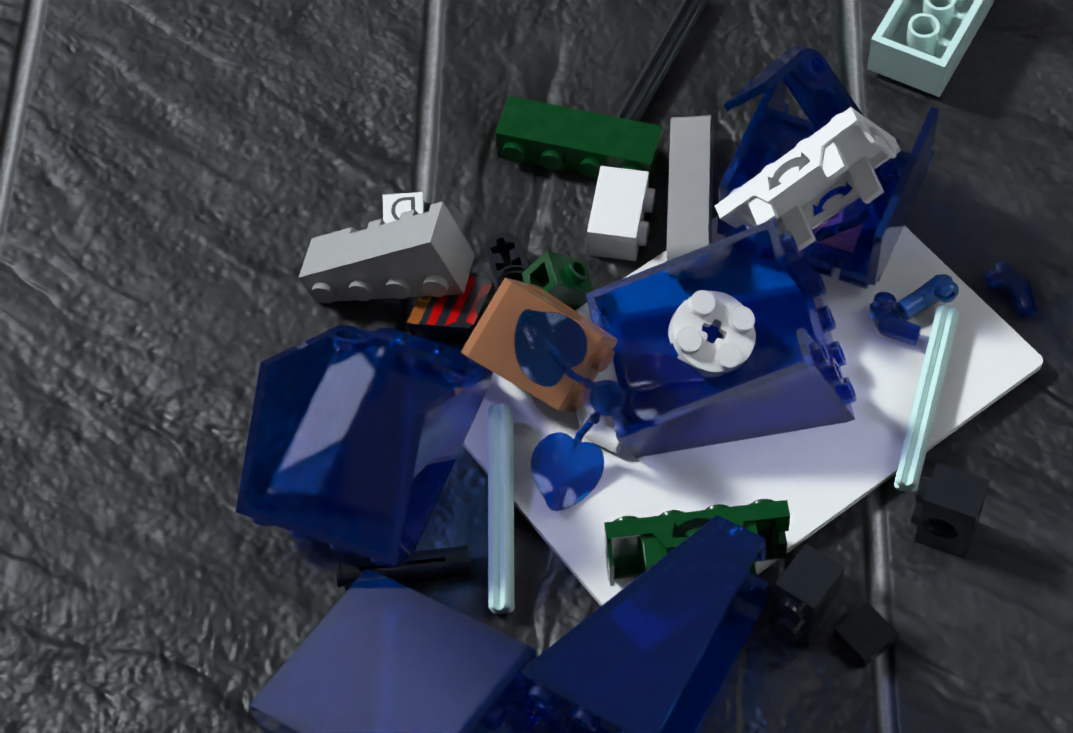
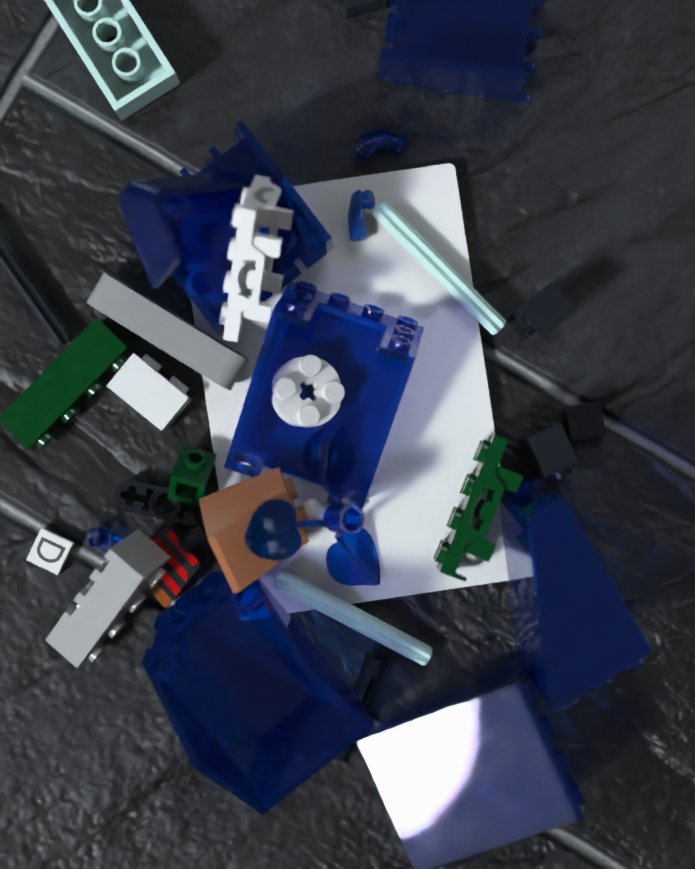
camera: 65 degrees left, 30 degrees up
(888, 321) = (363, 255): clear blue arm -> none

